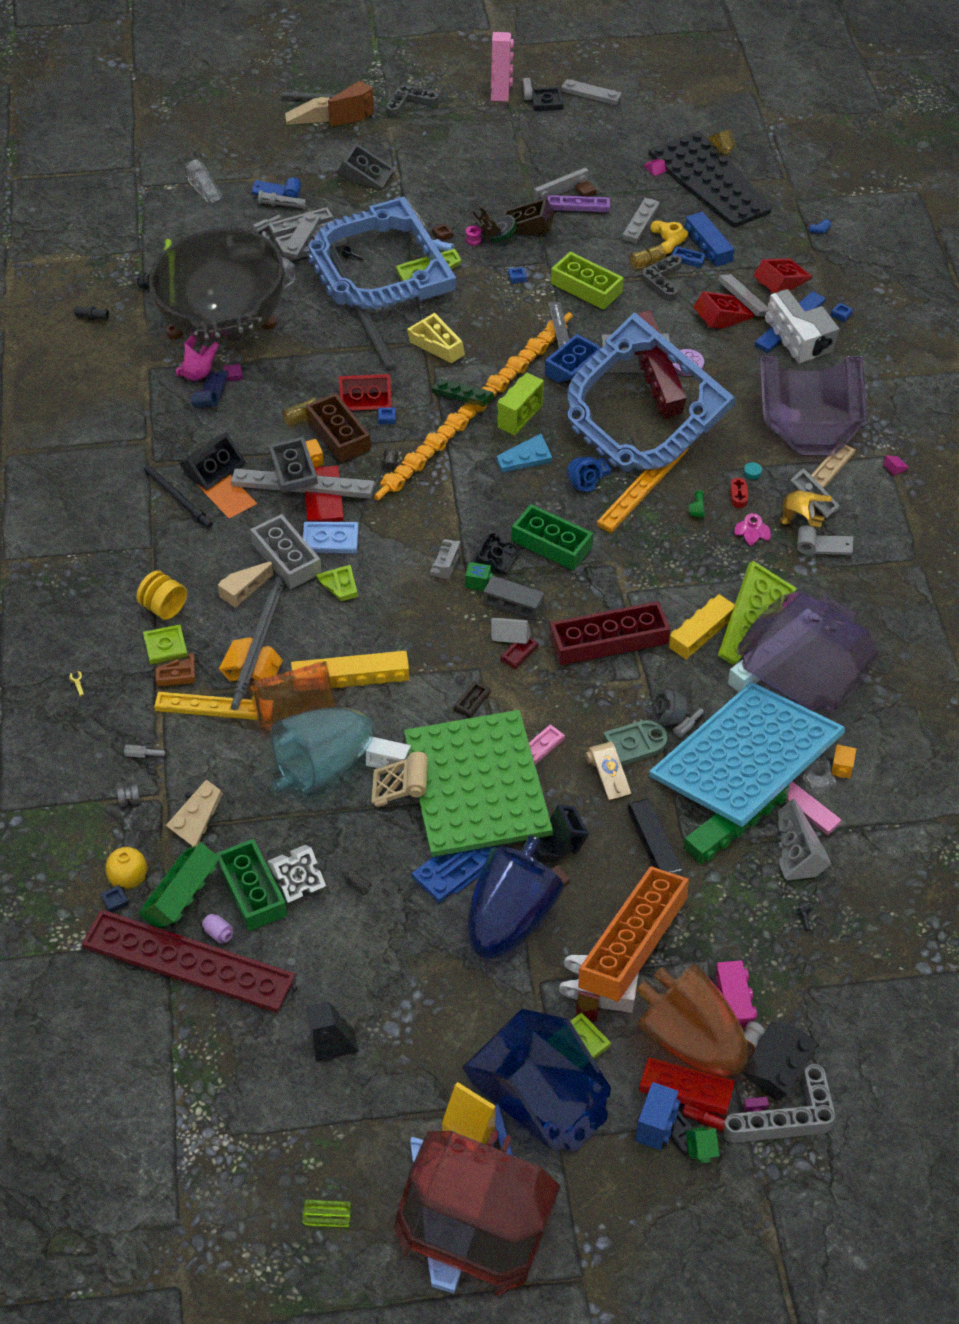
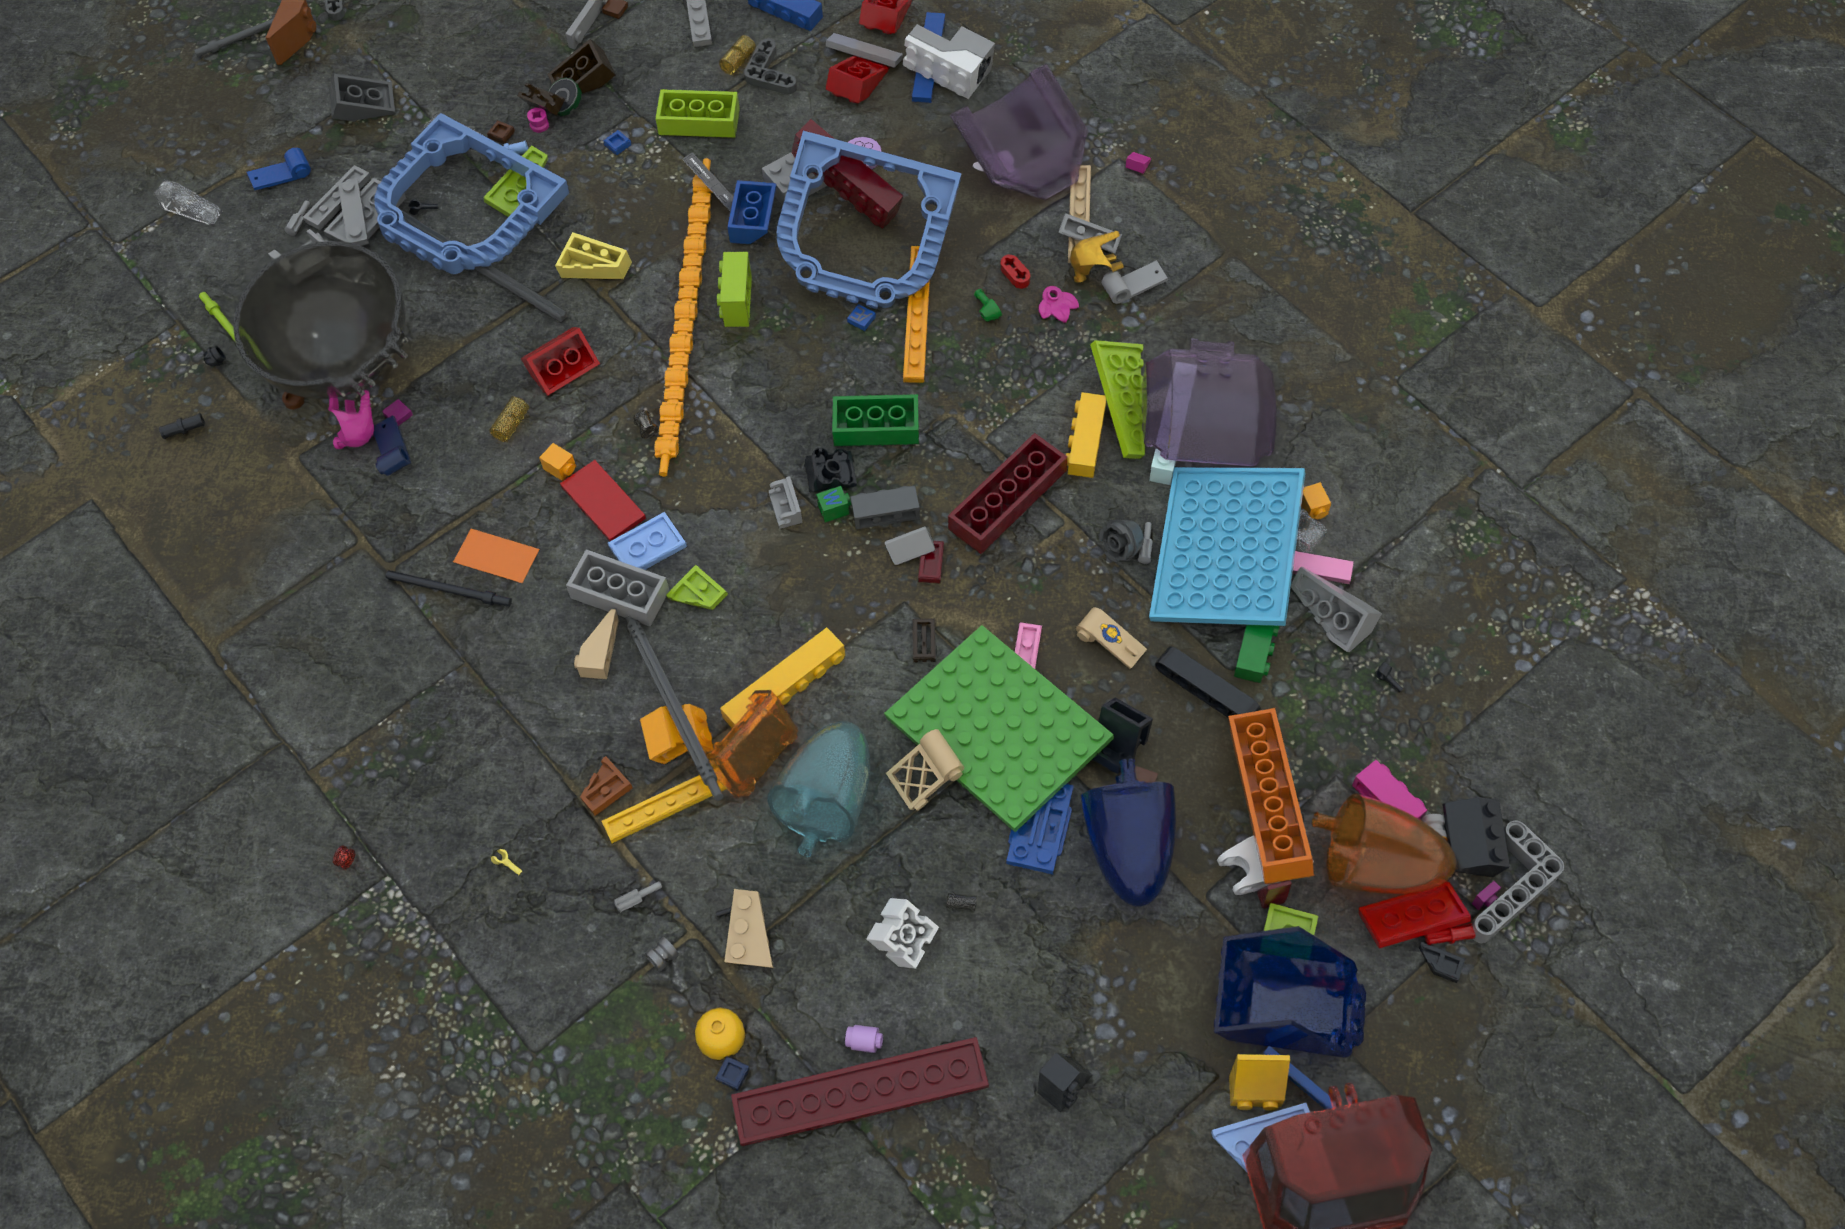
camera: 30 degrees left, 10 degrees up
(161, 595) = (525, 712): yellow wheel -> none
(165, 644) = (566, 763): lime tile -> none
(179, 886) = (796, 1021): green brick -> none
(213, 461) = (457, 528): black slope -> none
(251, 885) = (863, 972): green brick -> none
(274, 199) = (285, 184): light grey pin -> none
(292, 464) = (558, 488): dark grey slope -> none
(309, 112) = (247, 58): tan slope -> none
(327, 485) = (572, 500): light grey plate -> none
(338, 427) = (565, 417): reddish brown brick -> none
(386, 415) = (601, 375): blue tile -> none
(386, 752) = (889, 749): white hinge -> none
(462, 392) = (665, 307): dark green plate -> none
(527, 454) = (777, 343): dark azure wing -> none
(577, 203) = (622, 27): medium lavender plate -> none
(584, 473) = (855, 332): blue cone -> none
(636, 741) = (1111, 591): sand green tile -> none
(657, 1116) = (1416, 962): blue brick -> none
(671, 232) = (742, 15): yellow head -> none
(690, 257) = (775, 33): blue tile -> none
(702, 1144) = (1471, 962): green brick -> none
(752, 470) = (1011, 240): teal tile -> none
(841, 312) = (970, 20): blue tile -> none

